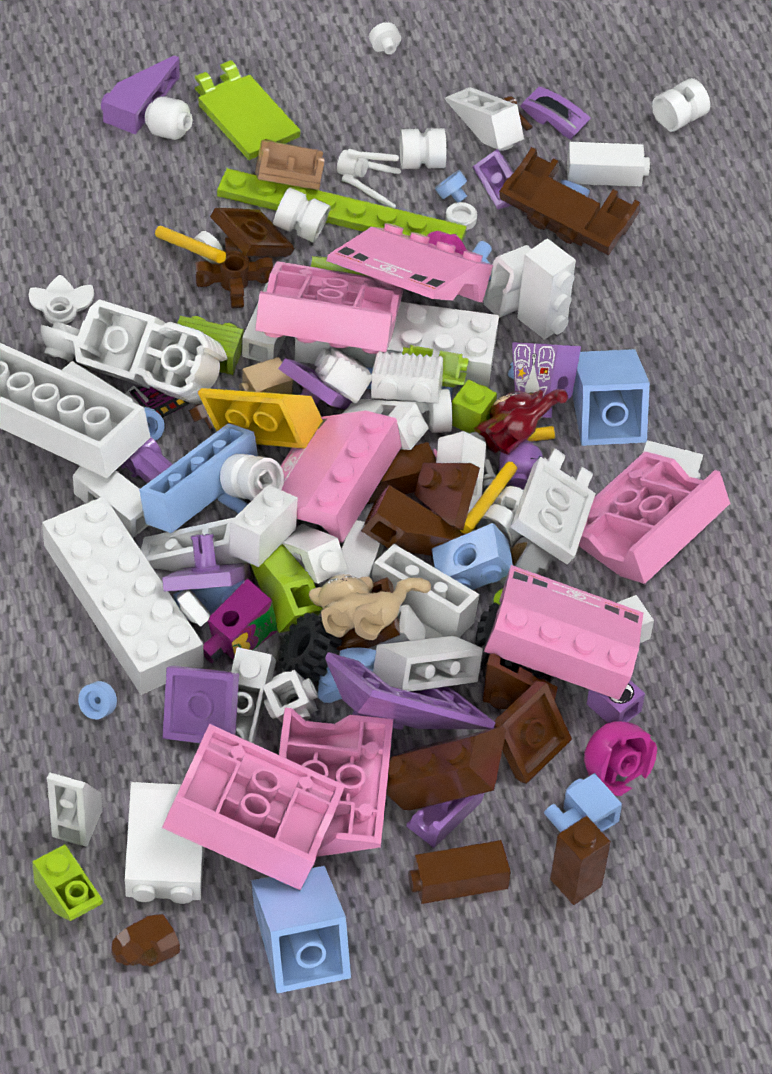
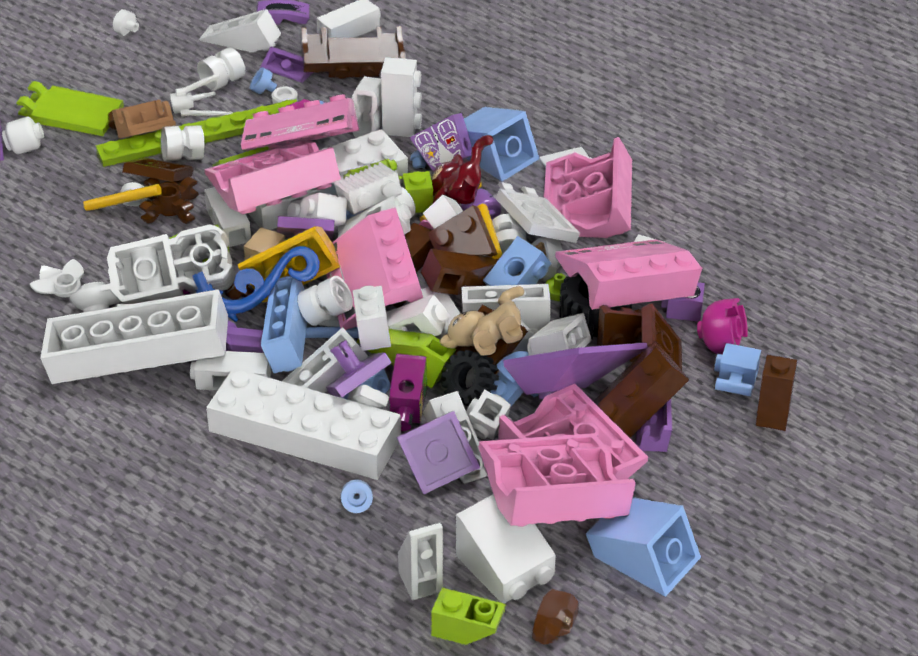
camera: 35 degrees left, 10 degrees down
(206, 426) = (262, 287): none -> blue plant
(460, 872) = (704, 450): reddish brown brick -> none

